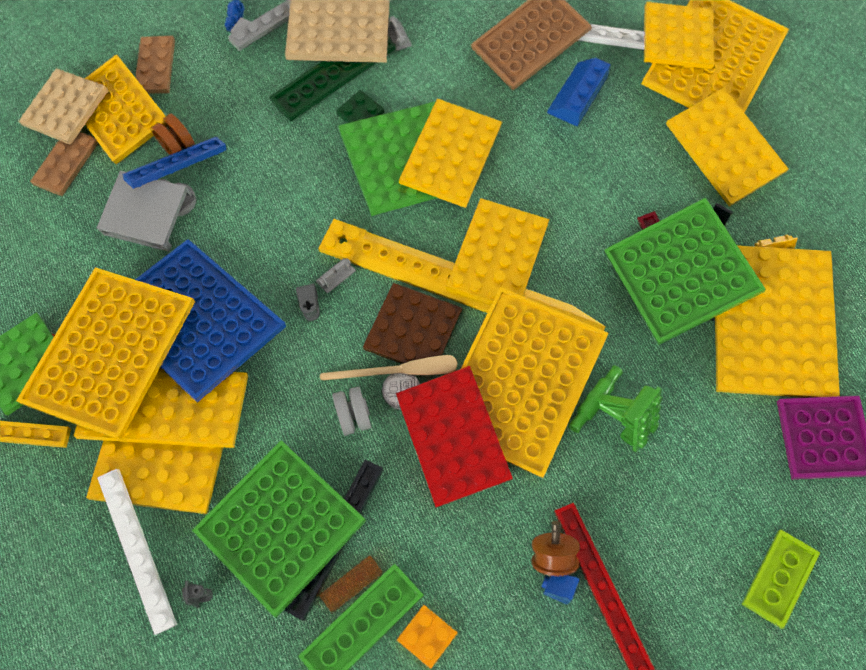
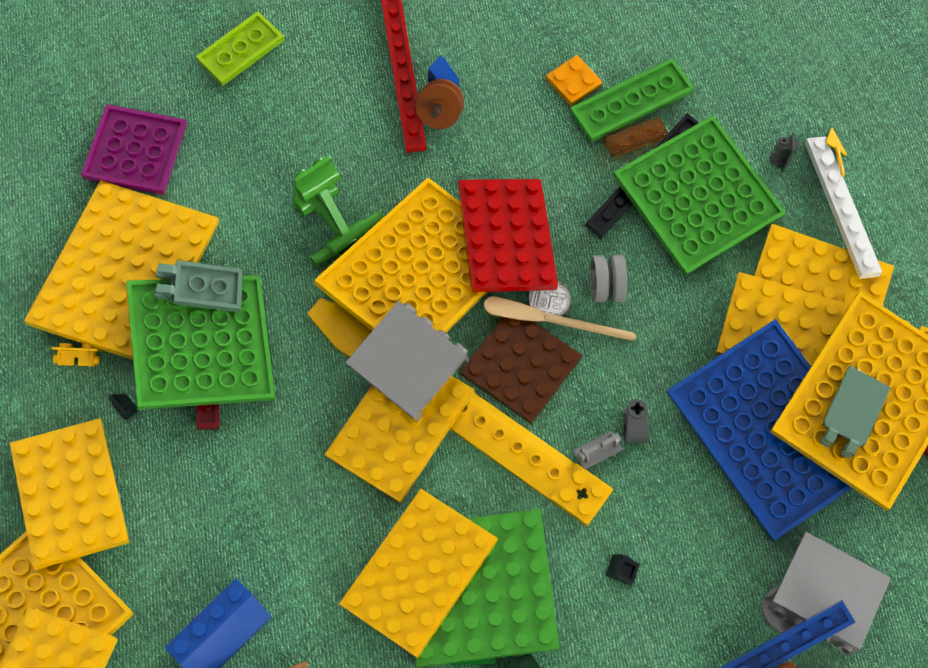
camera: 175 degrees left, 0 degrees up
(123, 327) = (854, 410): none -> sand green tile
(143, 628) = (833, 141): none -> yellow piece
(302, 197) = (622, 569): none -> black slope
(505, 285) = (407, 359): none -> light grey panel
(702, 306) = (200, 285): none -> sand green tile

